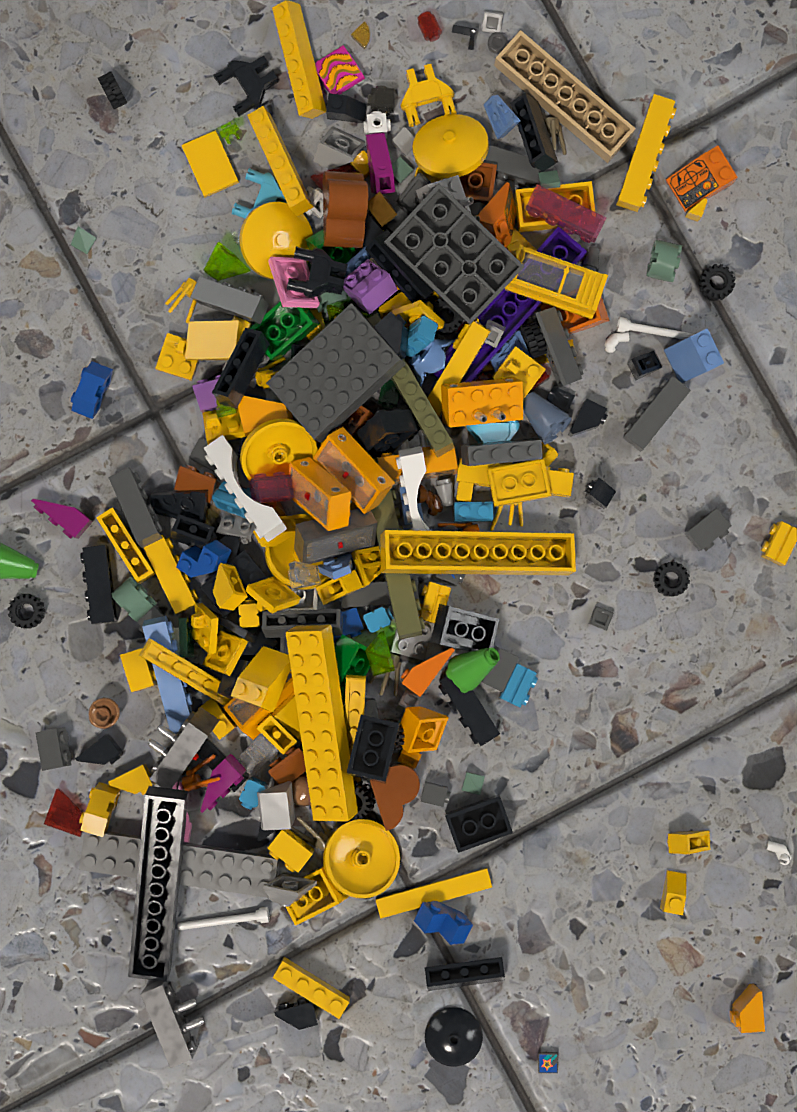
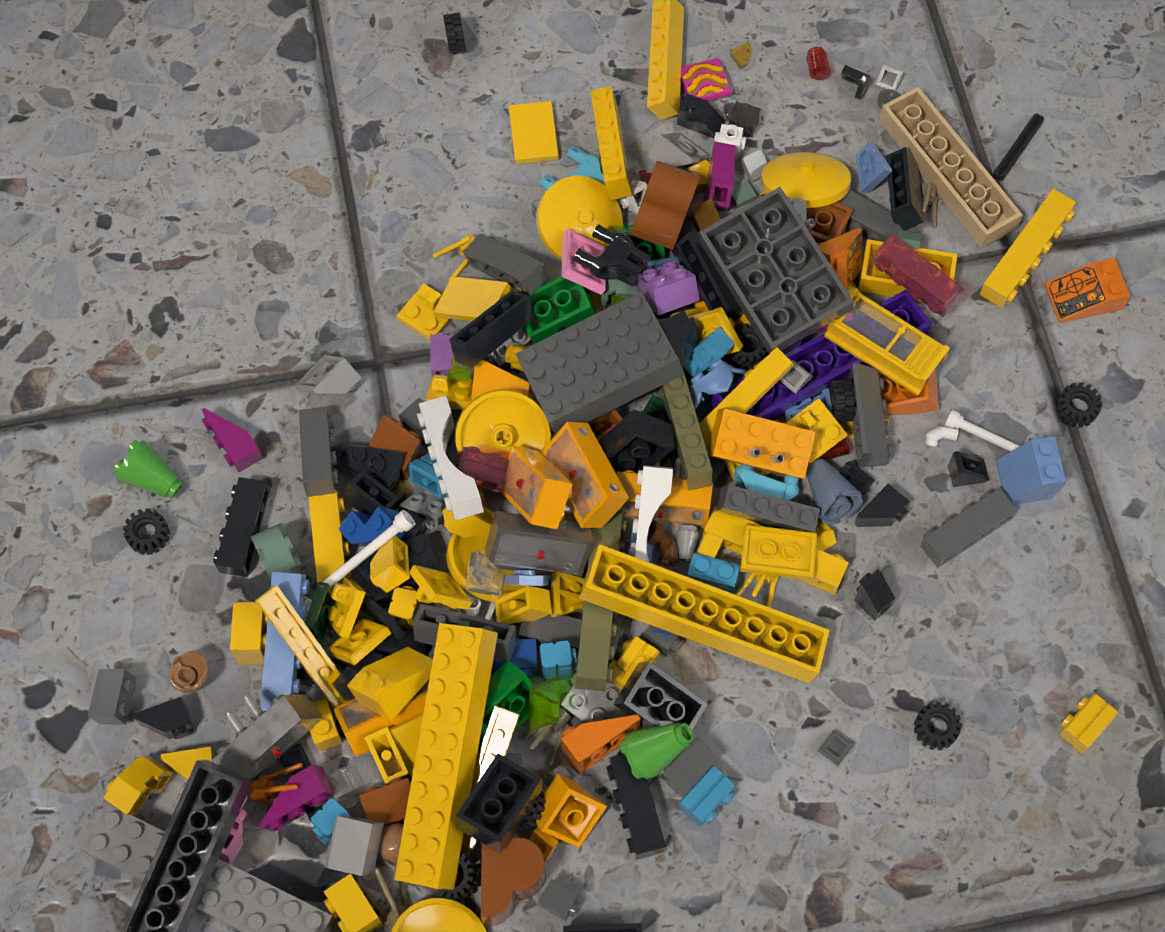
camera: 20 degrees right, 20 degrees down
(64, 814) = (91, 780): clear red wing -> none
(83, 240) = (367, 168): sand green slope -> none
(89, 393) = (314, 314): blue brick -> none
(120, 440) = (329, 376): none -> light grey slope
(126, 545) = (290, 491): yellow brick -> none
(224, 264) = (514, 230): clear neon green slope -> none
(227, 556) = (402, 522): none -> white piece
(228, 129) = (565, 103): clear neon green tile -> none
(251, 83) = (609, 63): black connector -> none
(424, 93) = (794, 125): yellow connector -> none
(473, 783) = (612, 903): sand green slope -> none
(615, 57) = (1018, 147): none -> black axle
(664, 260) = (1020, 361): sand green brick -> none
(697, 211) = (1071, 323): yellow slope -> none
(708, 529) = (999, 678): dark grey brick -> none

